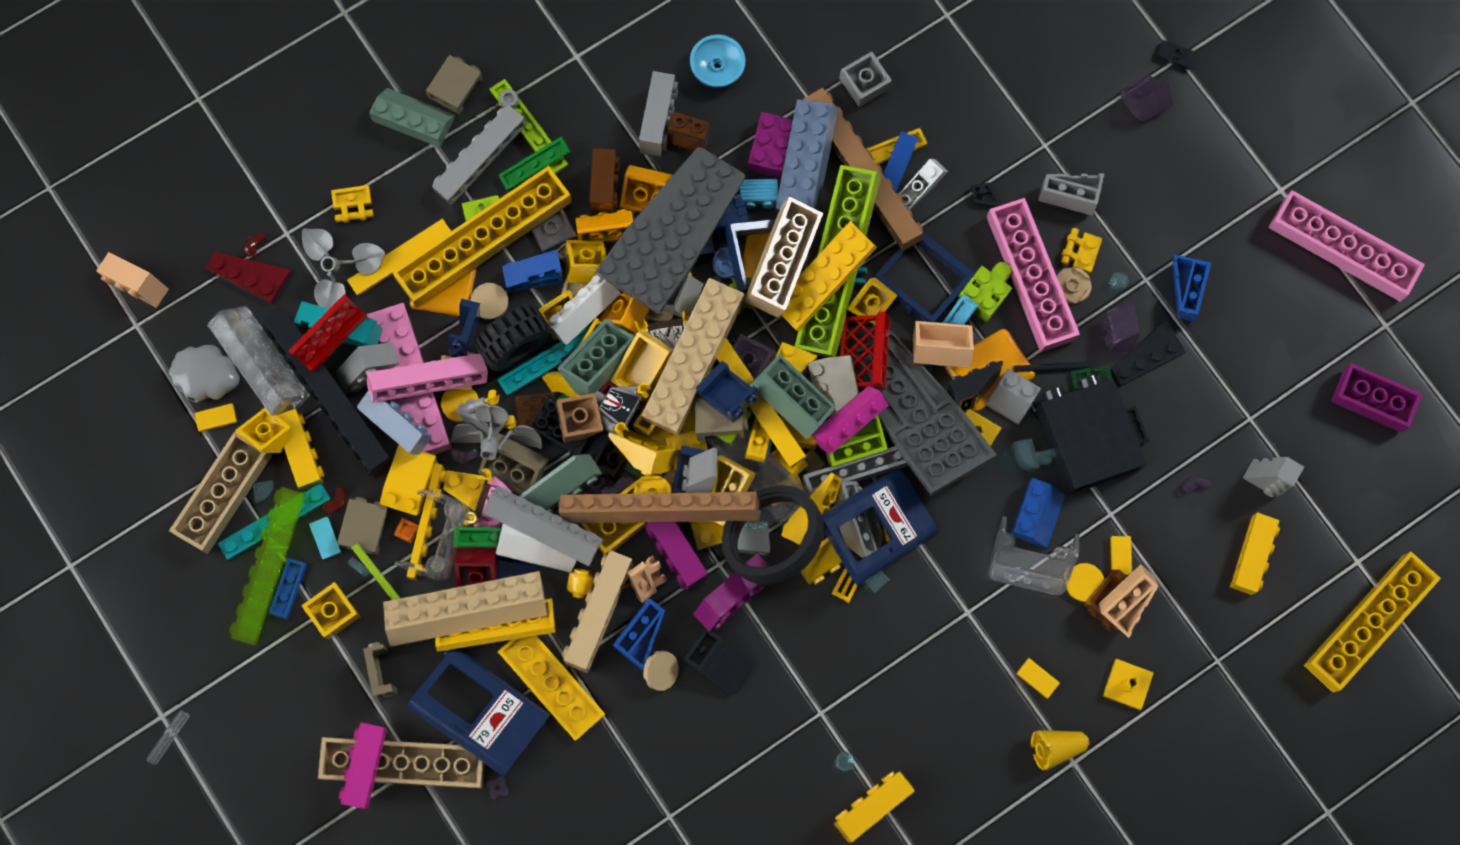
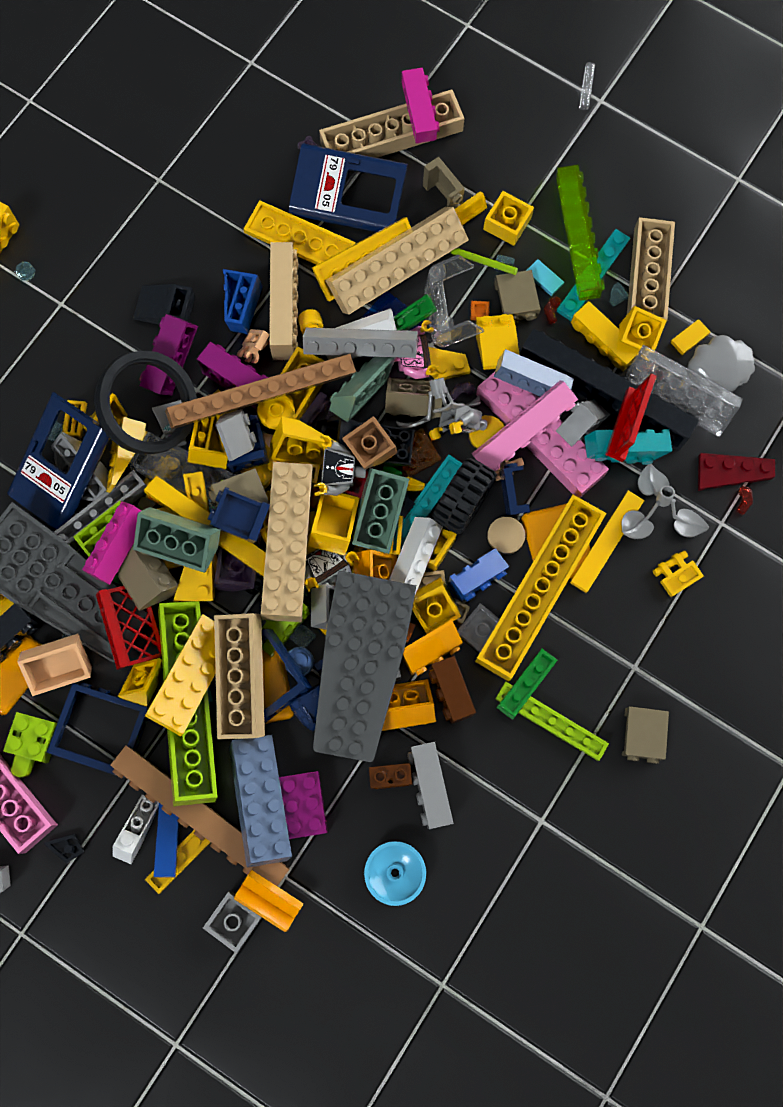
camera: 160 degrees right, 0 degrees up
(287, 588) = (554, 228): blue tile -> none
(363, 641) = (471, 207): none -> yellow tile
(411, 117) = (668, 684): sand green slope -> none
(429, 513) = (464, 314): yellow plate -> none
(474, 207) = (557, 621): lime plate -> none
(475, 565) = (403, 295): dark red slope -> none
(479, 154) = (584, 670): light grey brick -> none
(509, 97) = (584, 739): light grey tile -> none
(661, 670) = (209, 277): tan tile -> none
(759, 193) = (295, 749): medium azure brick -> none
(831, 80) = (268, 901): none -> light orange panel
(961, 311) = (49, 705): medium azure tile -> none

